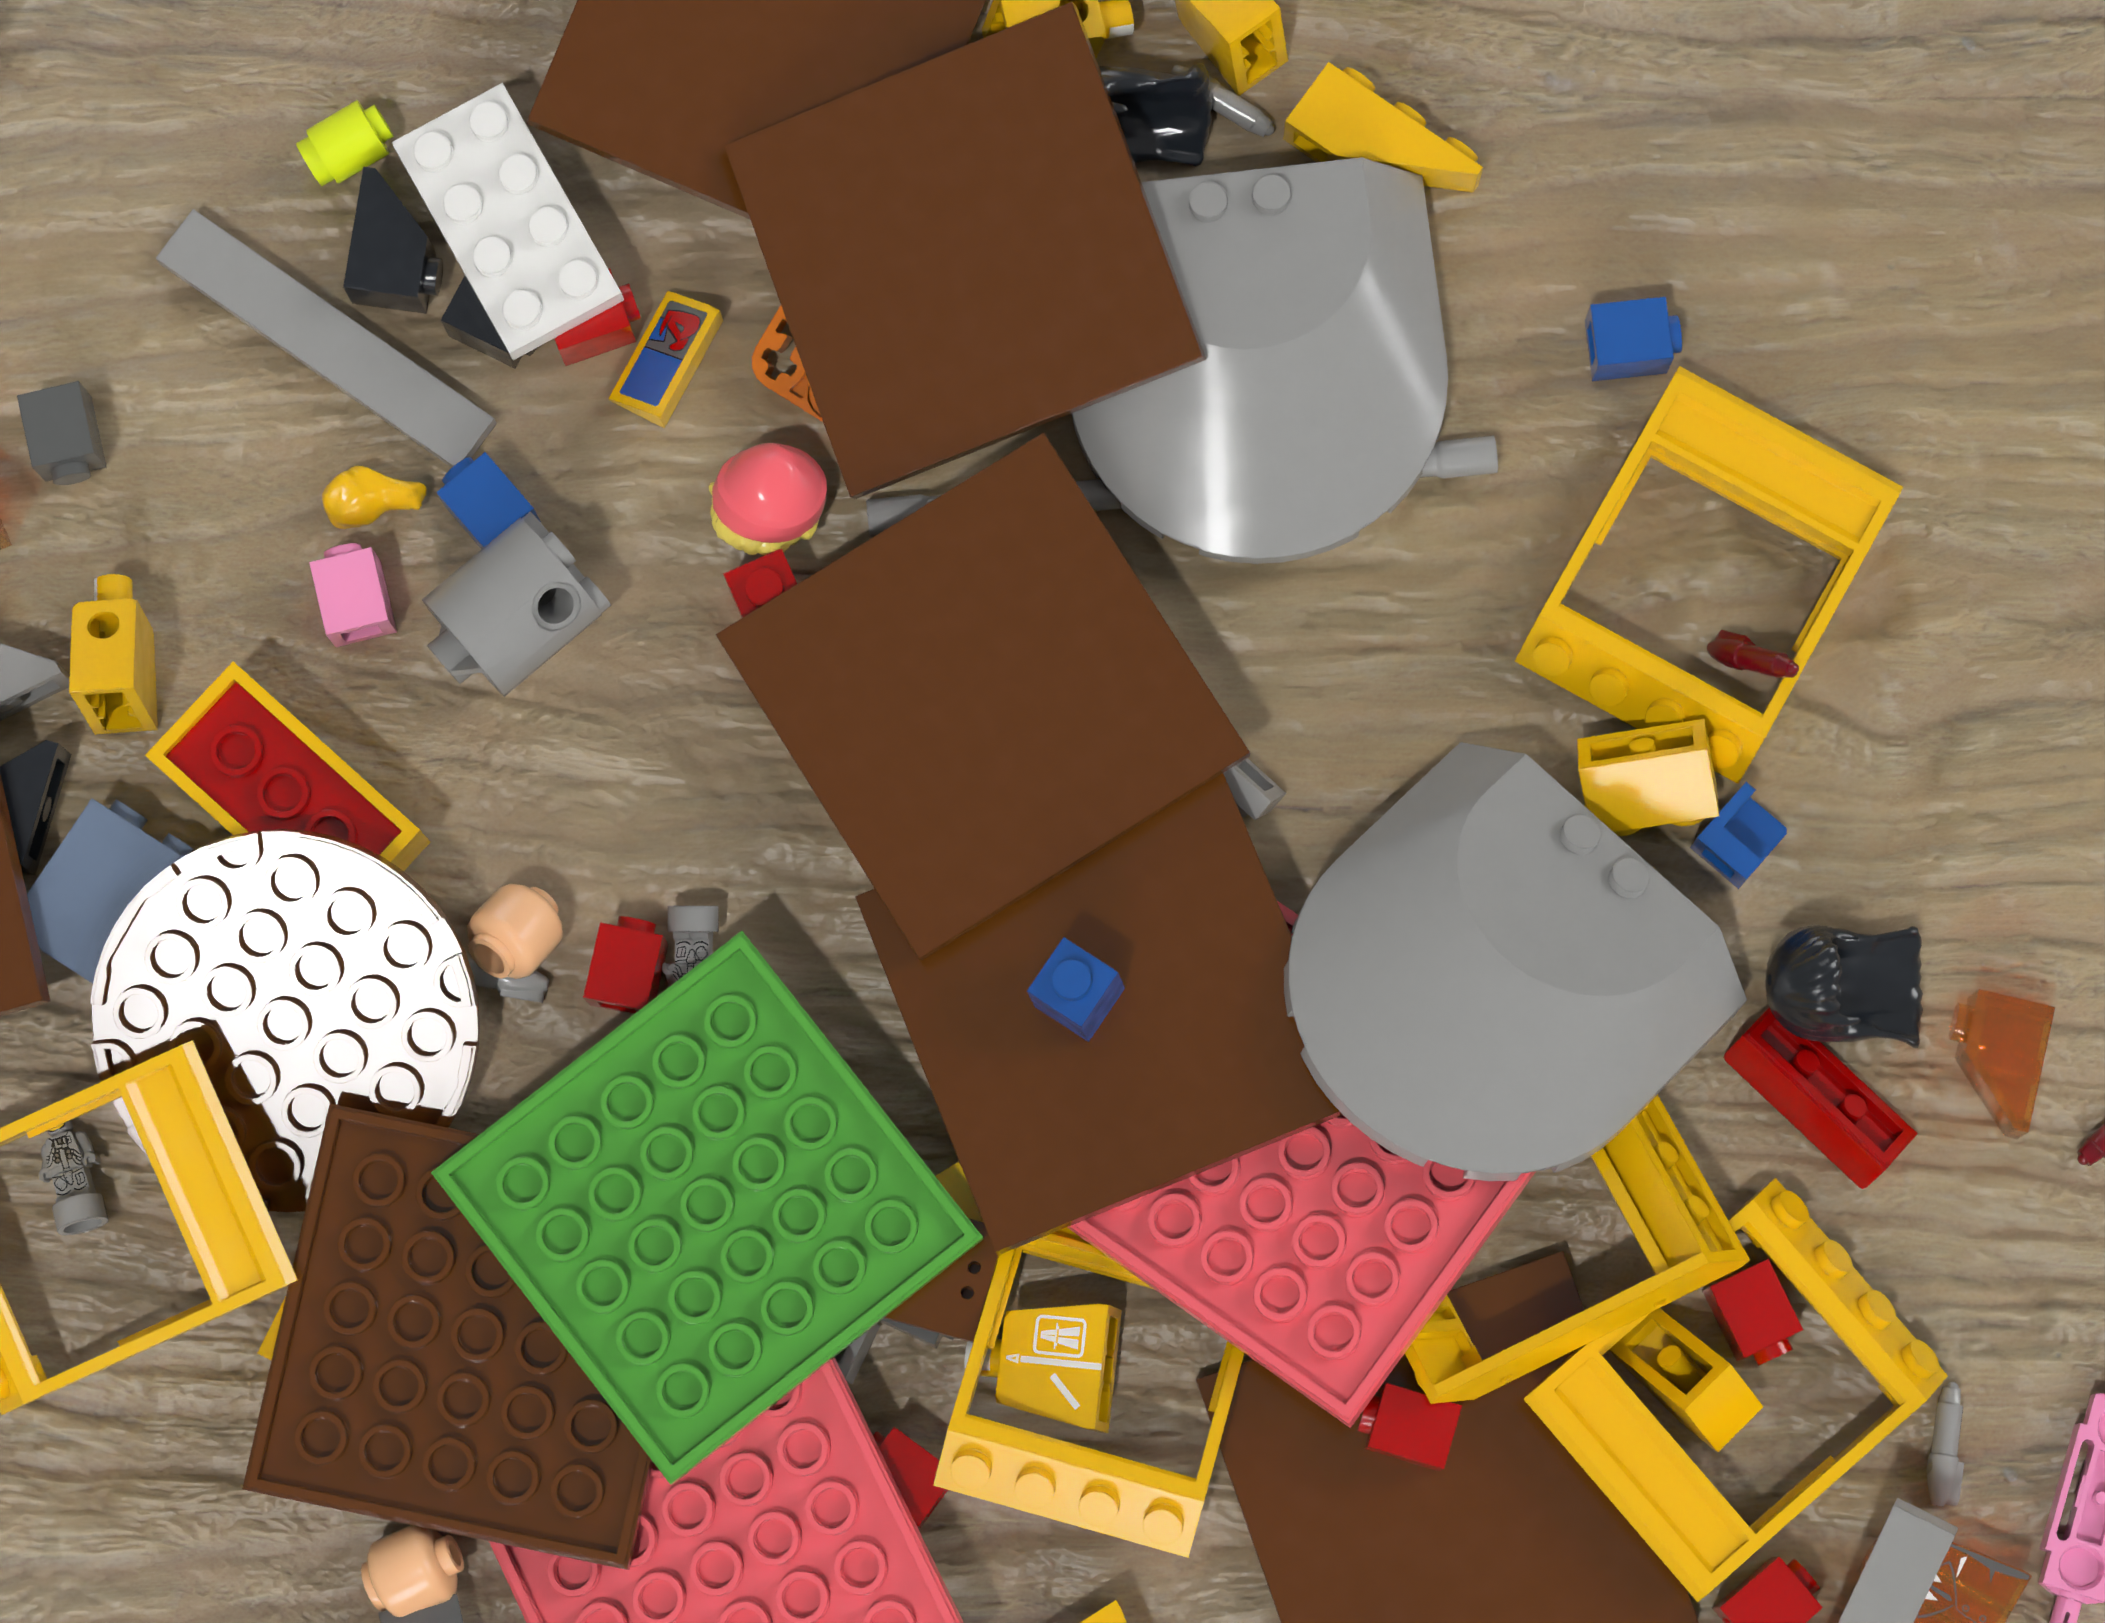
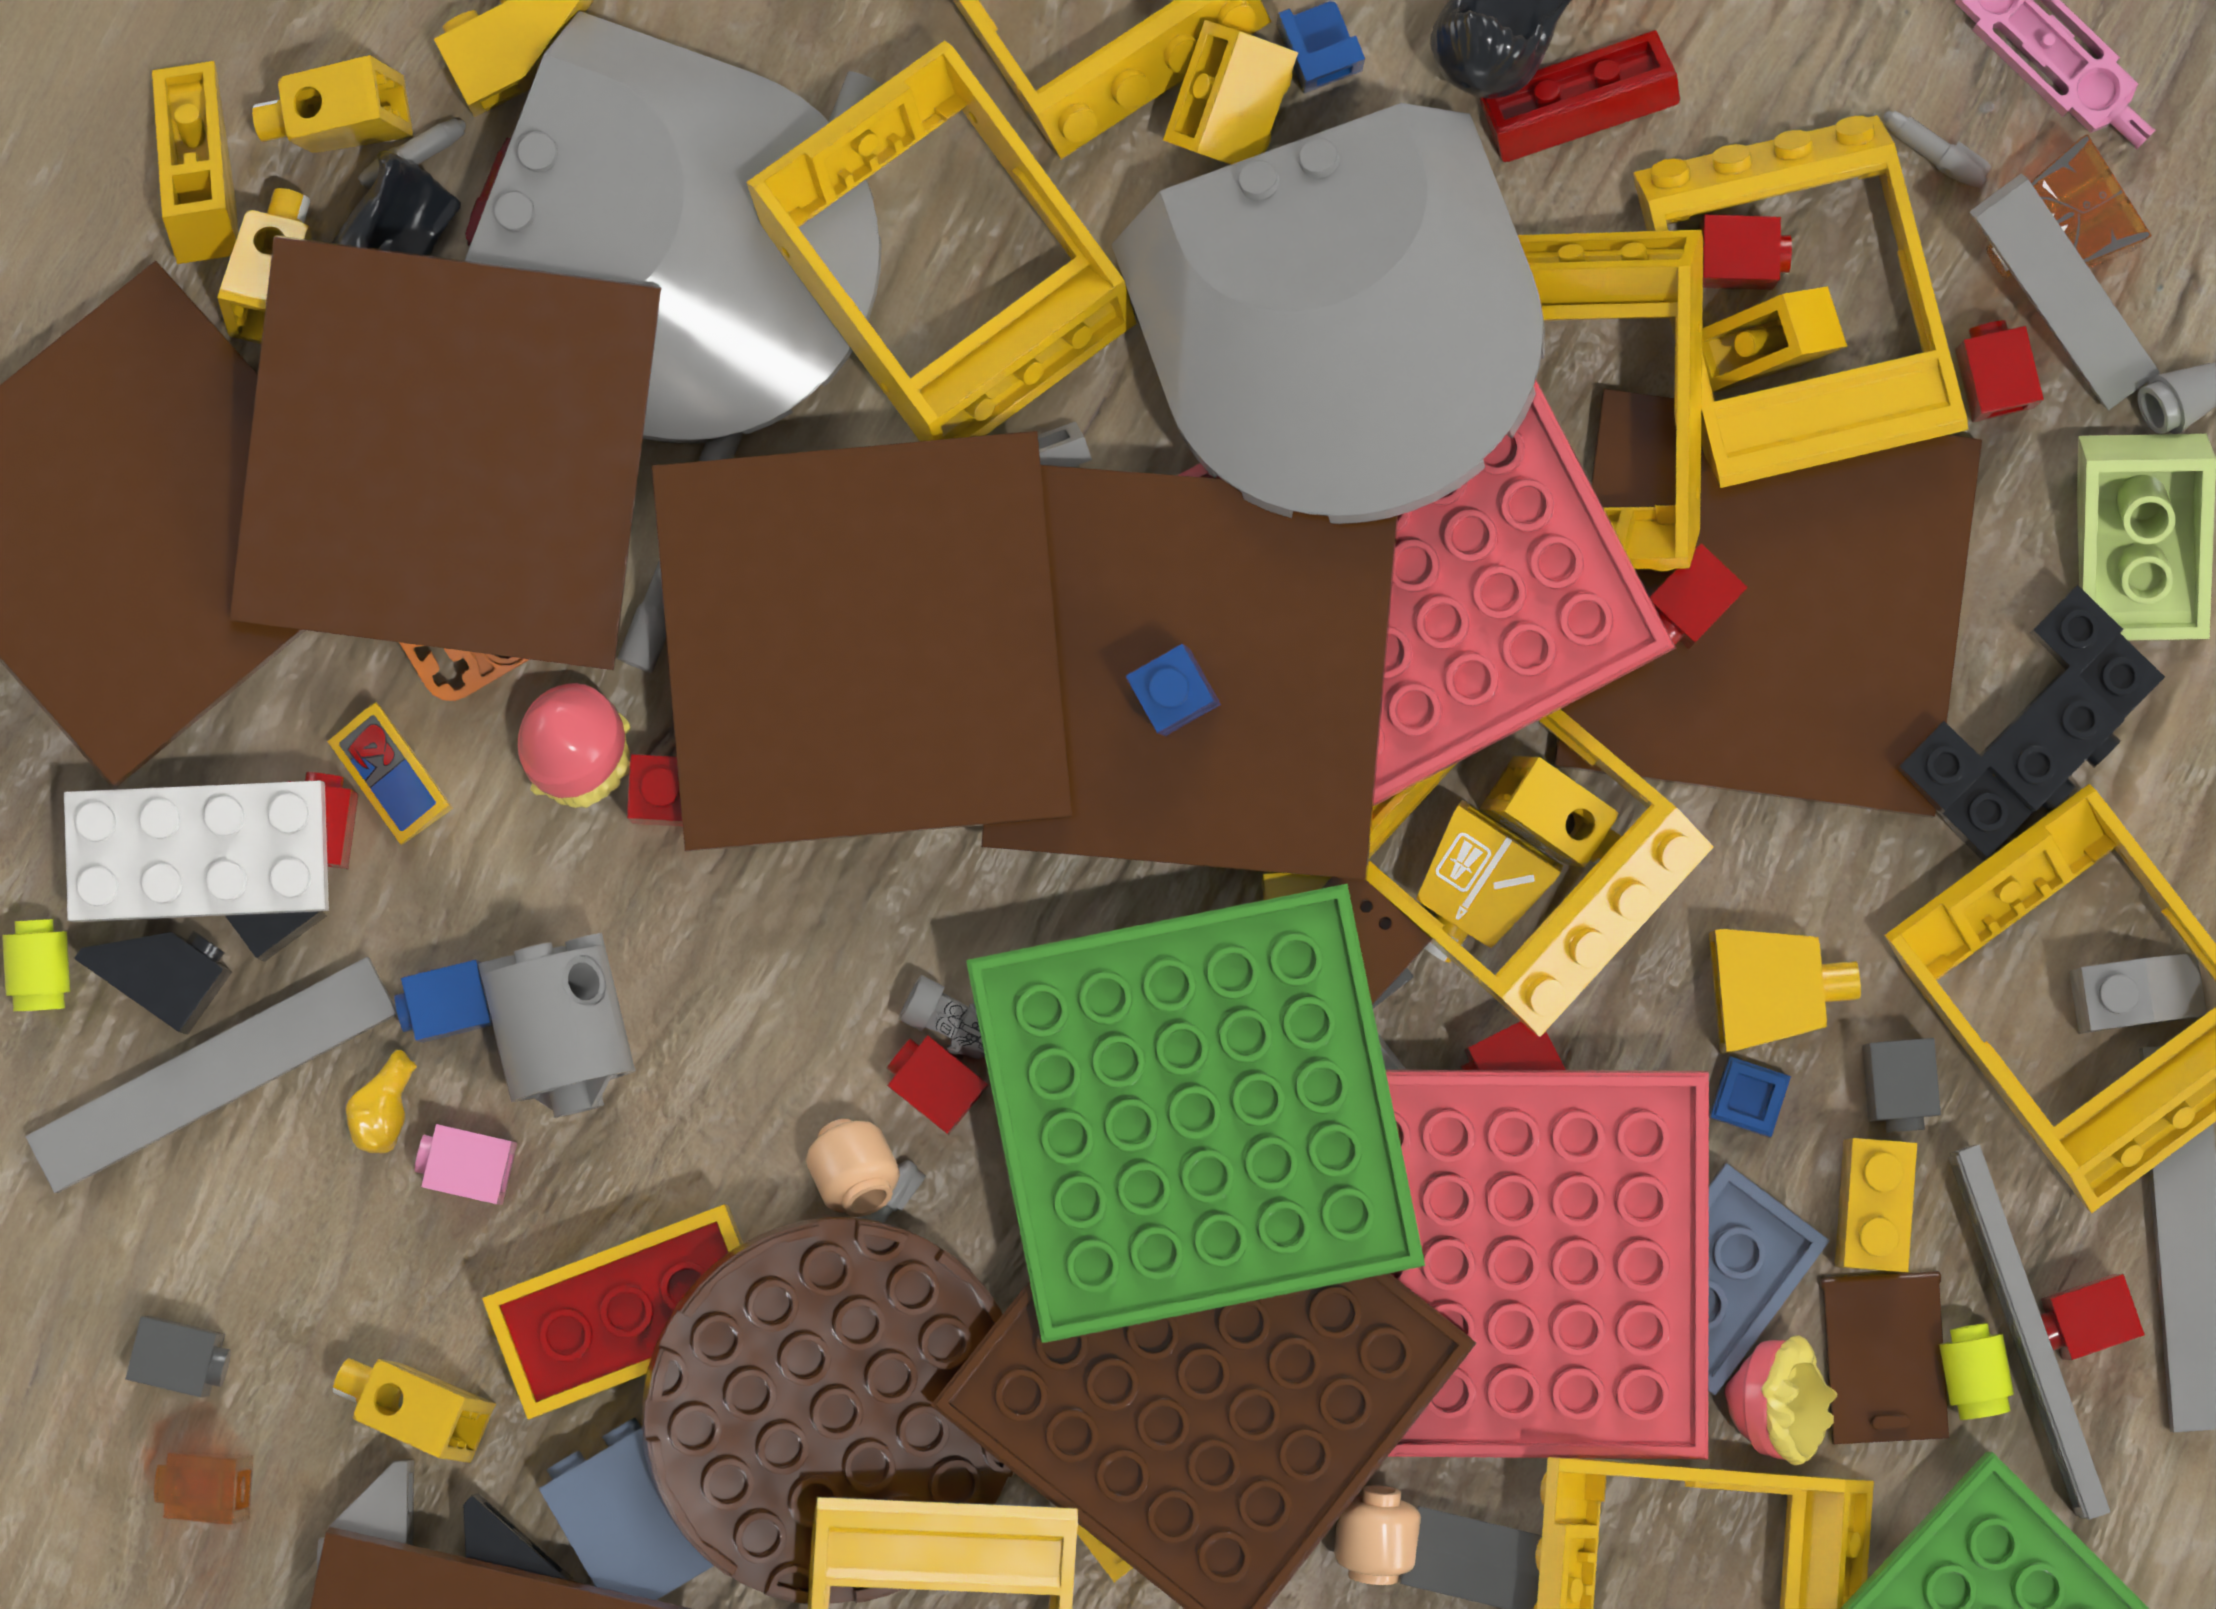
camera: 70 degrees left, 5 degrees up
(1149, 1378) = (1535, 804): none -> yellow torso
(1316, 703) = (1018, 349): none -> yellow window

